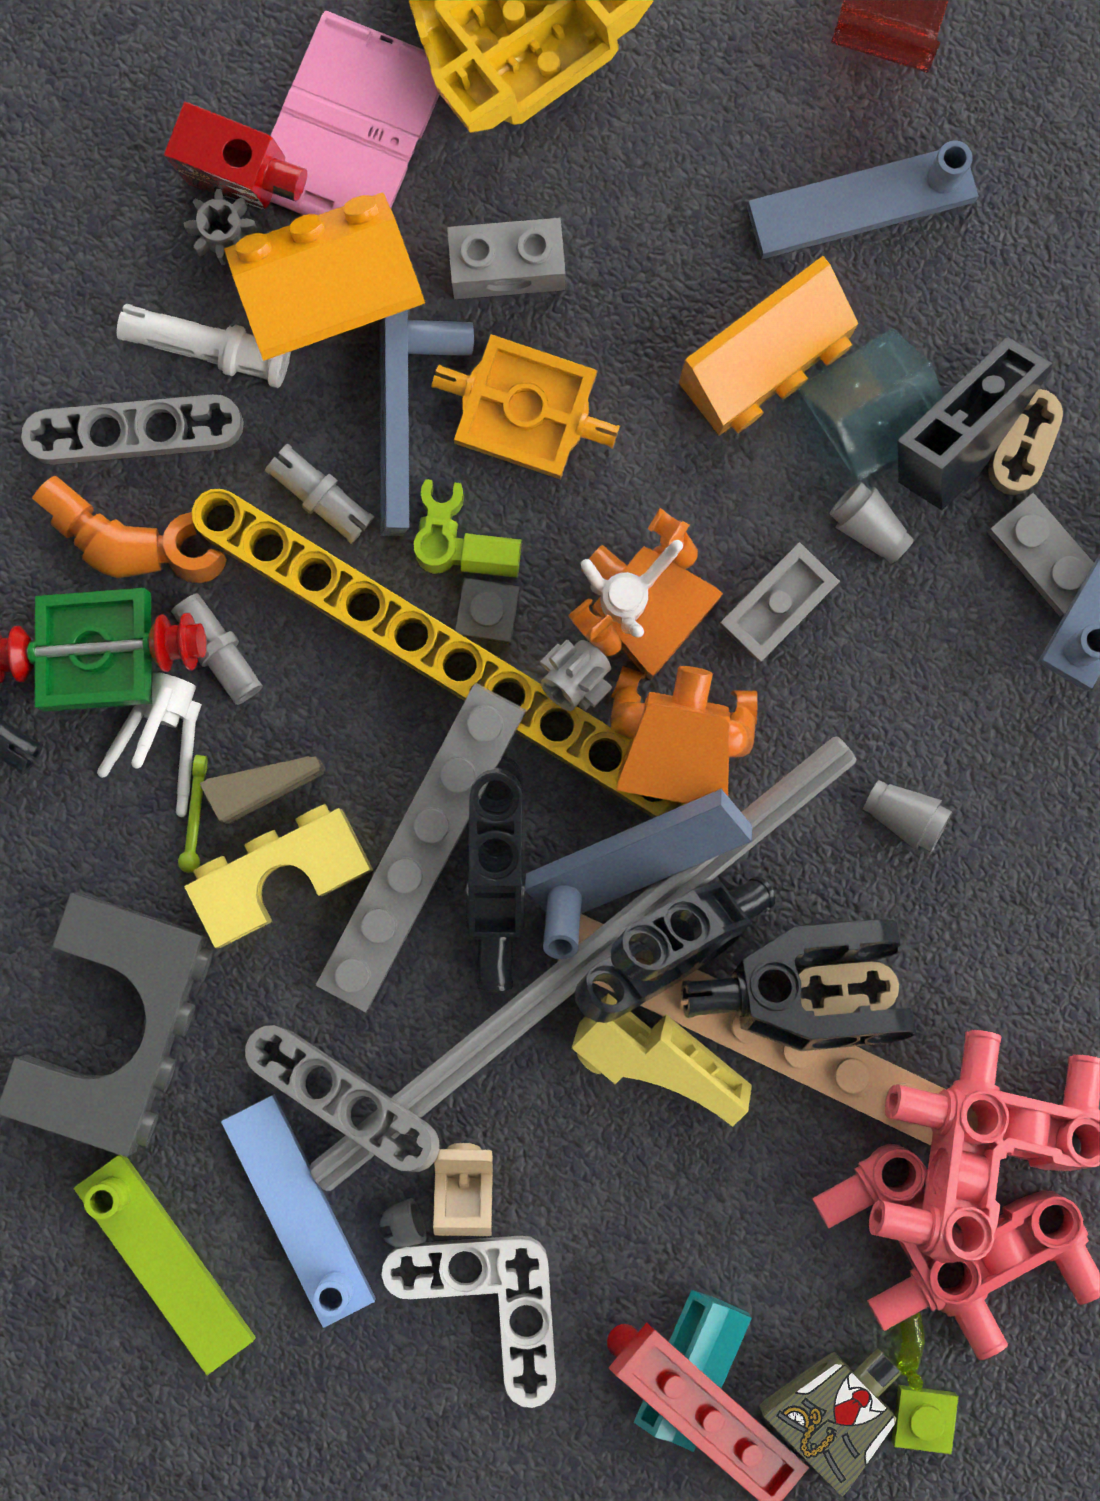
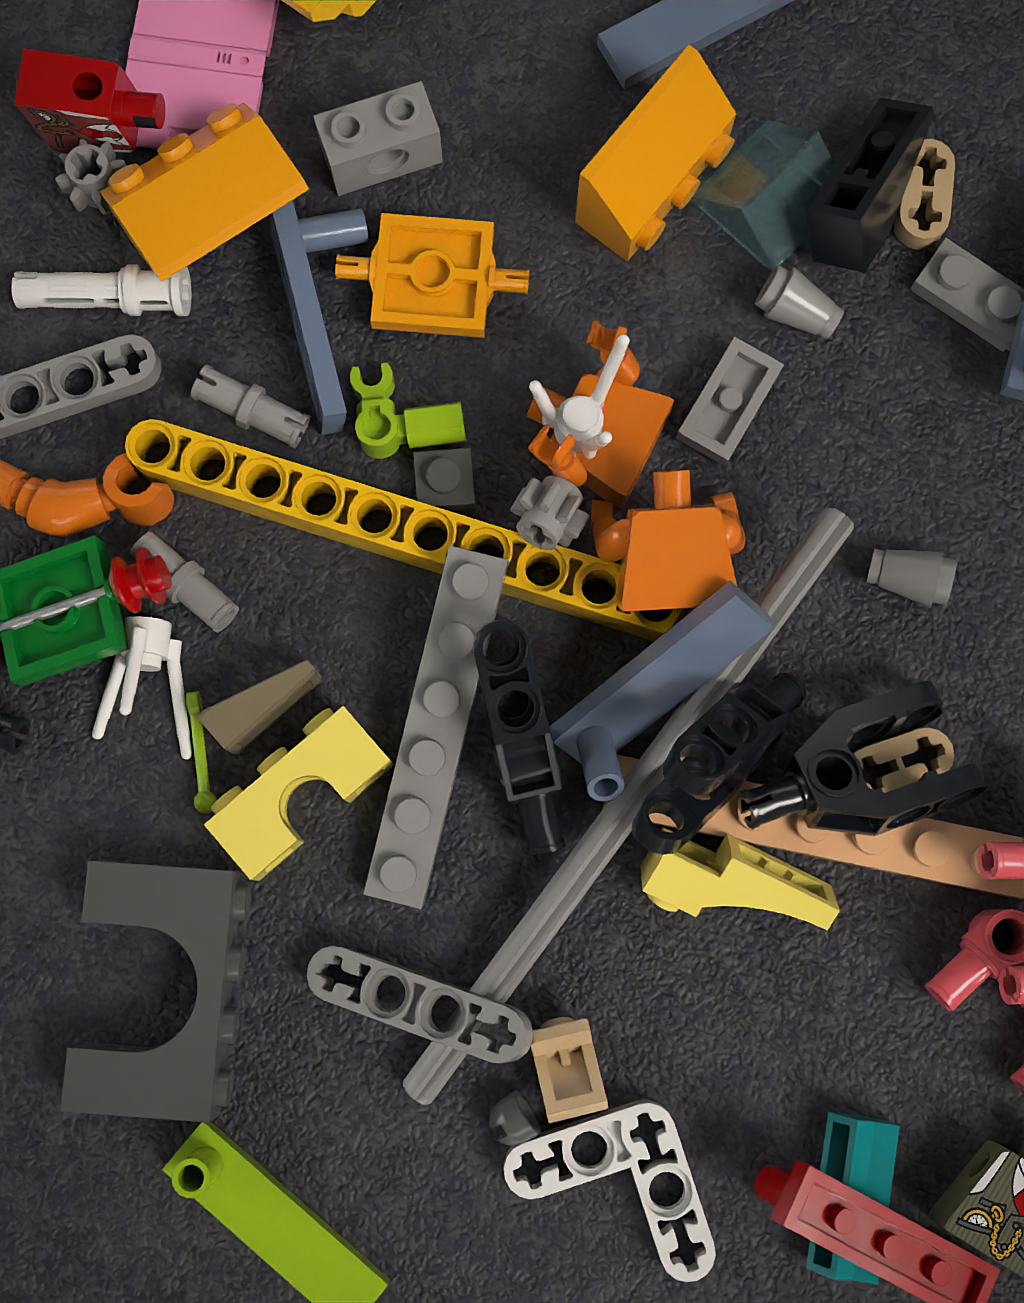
camera: 10 degrees left, 5 degrees down
(298, 1211) = (403, 1134): light blue piece -> none

